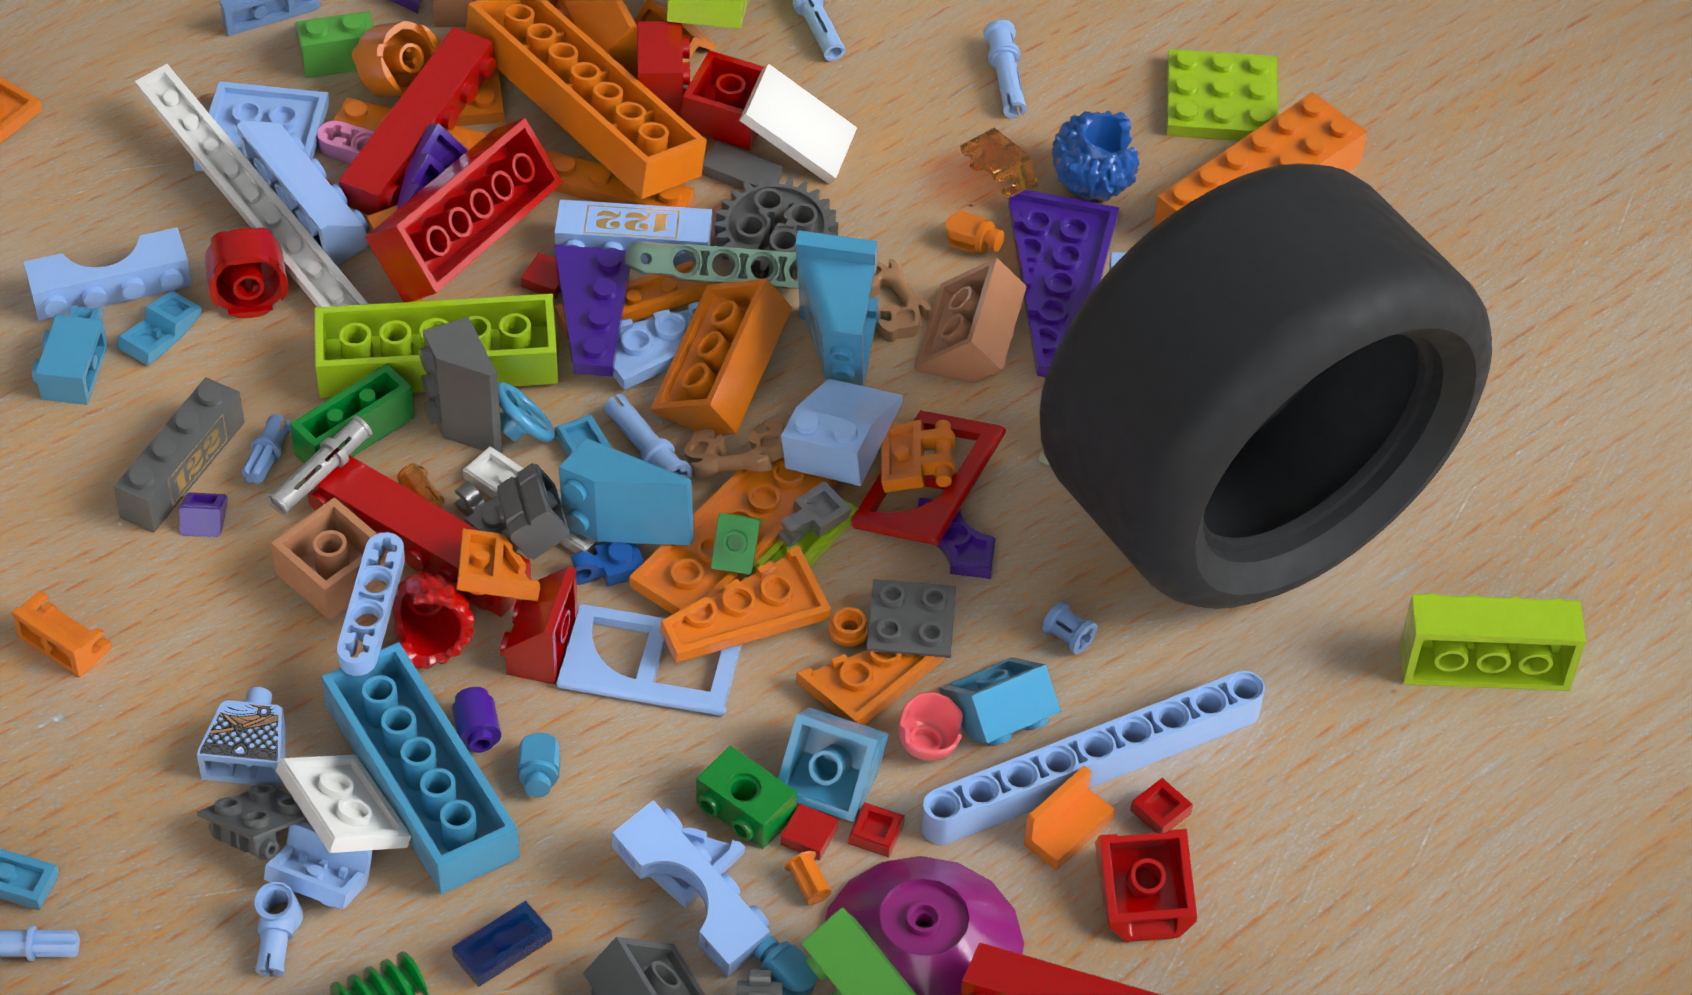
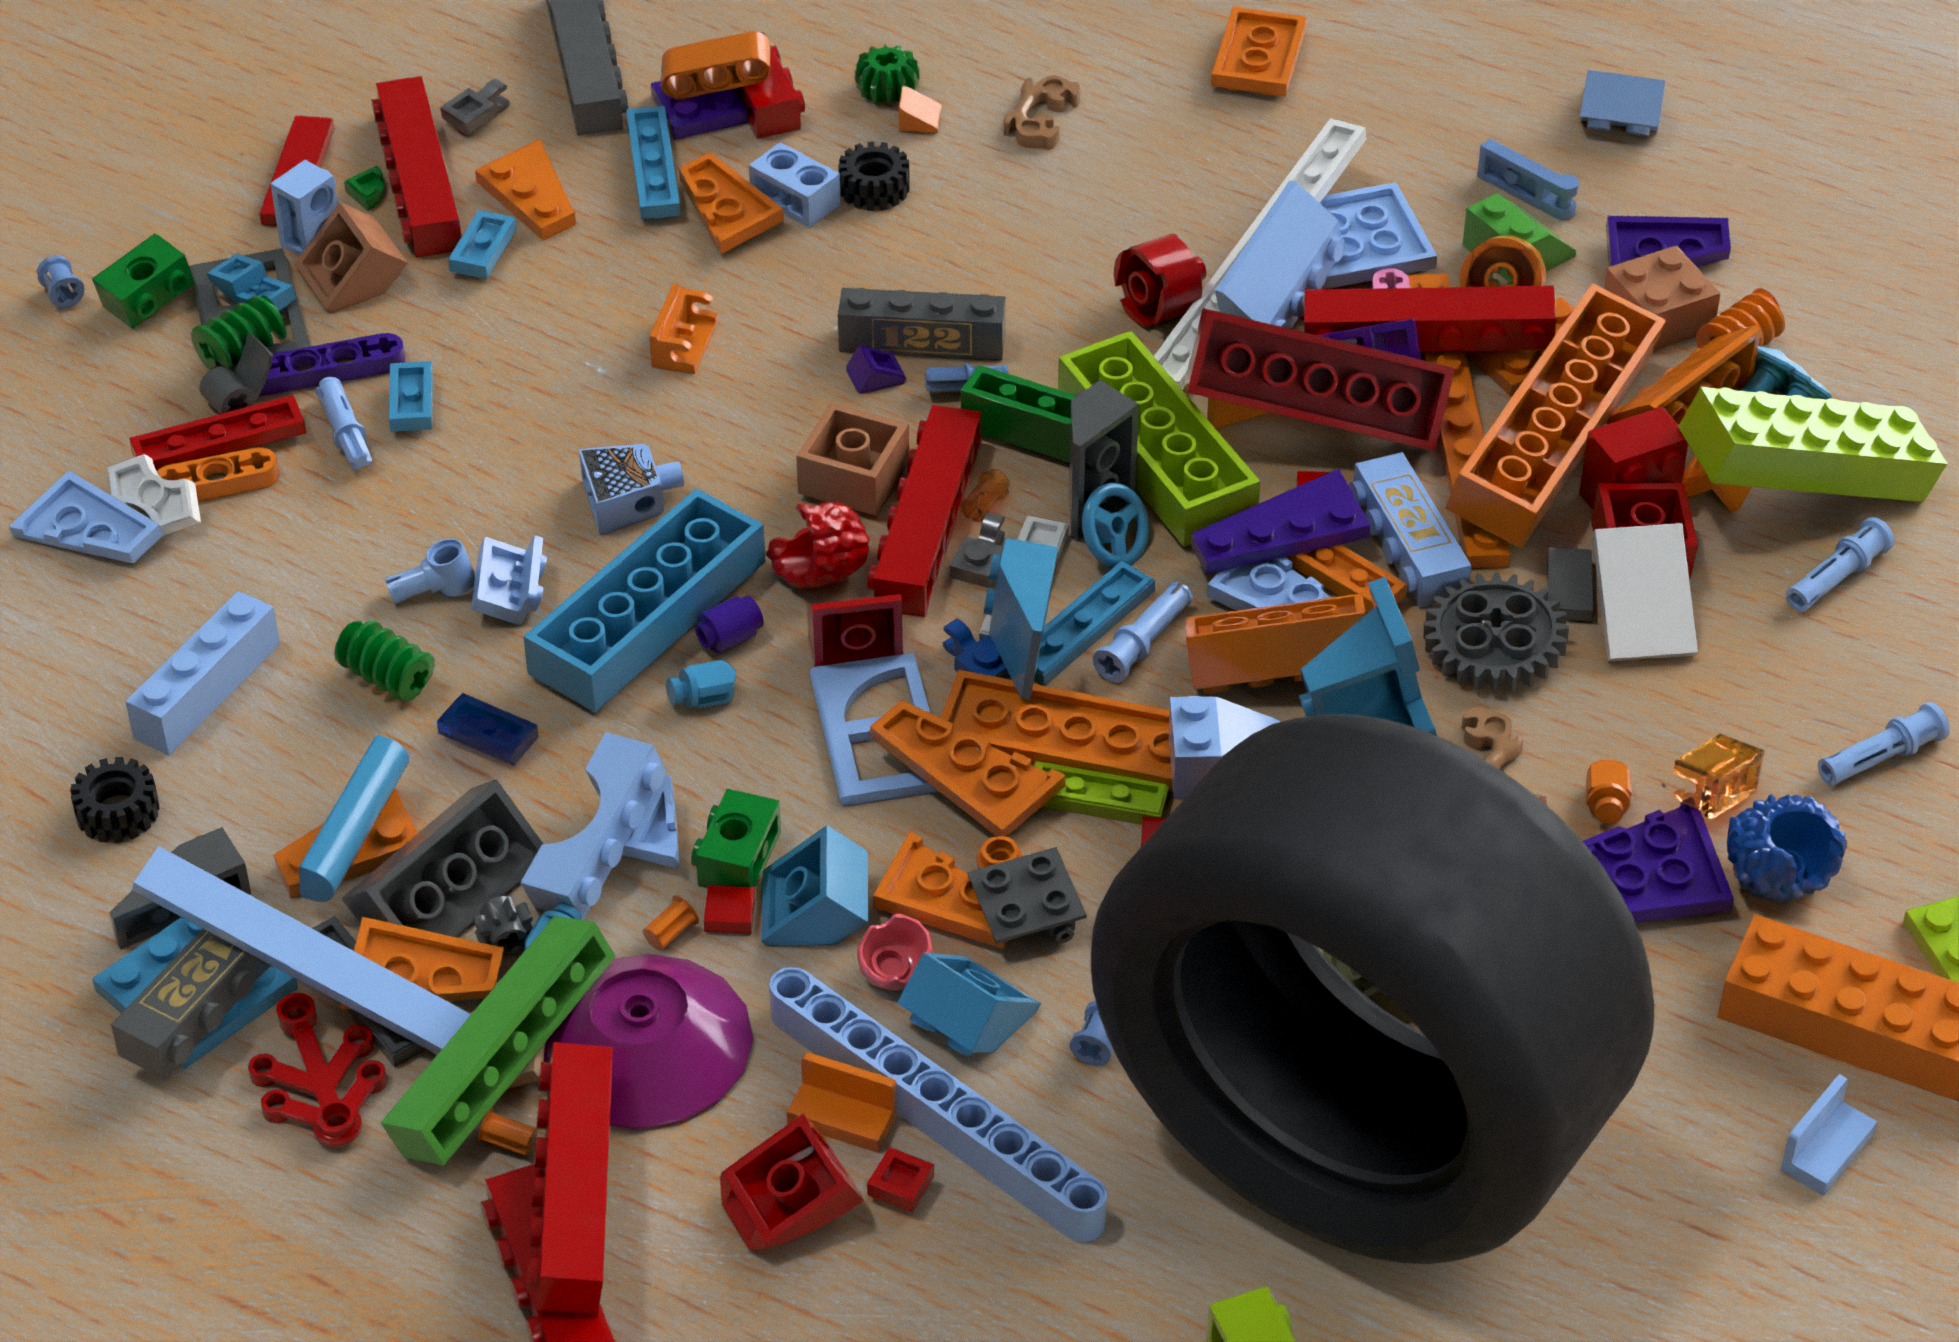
camera: 70 degrees right, 5 degrees down
(71, 356) = (999, 219): dark azure brick -> none
(152, 268) = (1072, 184): light blue arch -> none
(163, 326) = (1086, 266): dark azure slope -> none
(253, 819) = (534, 509): dark grey hinge -> none
(343, 803) = (567, 554): white tile -> none
(352, 434) = (959, 403): light grey pin -> none
(366, 602) = (789, 481): light blue beam -> none
(492, 567) = (882, 550): orange wing -> none
(531, 512) = (964, 561): dark grey brick -> none
(661, 258) = (1357, 543): sand green piece -> none
(708, 453) = (1158, 675): medium nougat helmet -> none
(736, 543) = (1038, 718): green bracket -> none
(815, 510) = (1116, 777): flat silver plate -> none
(876, 829) = (758, 959): red tile -> none

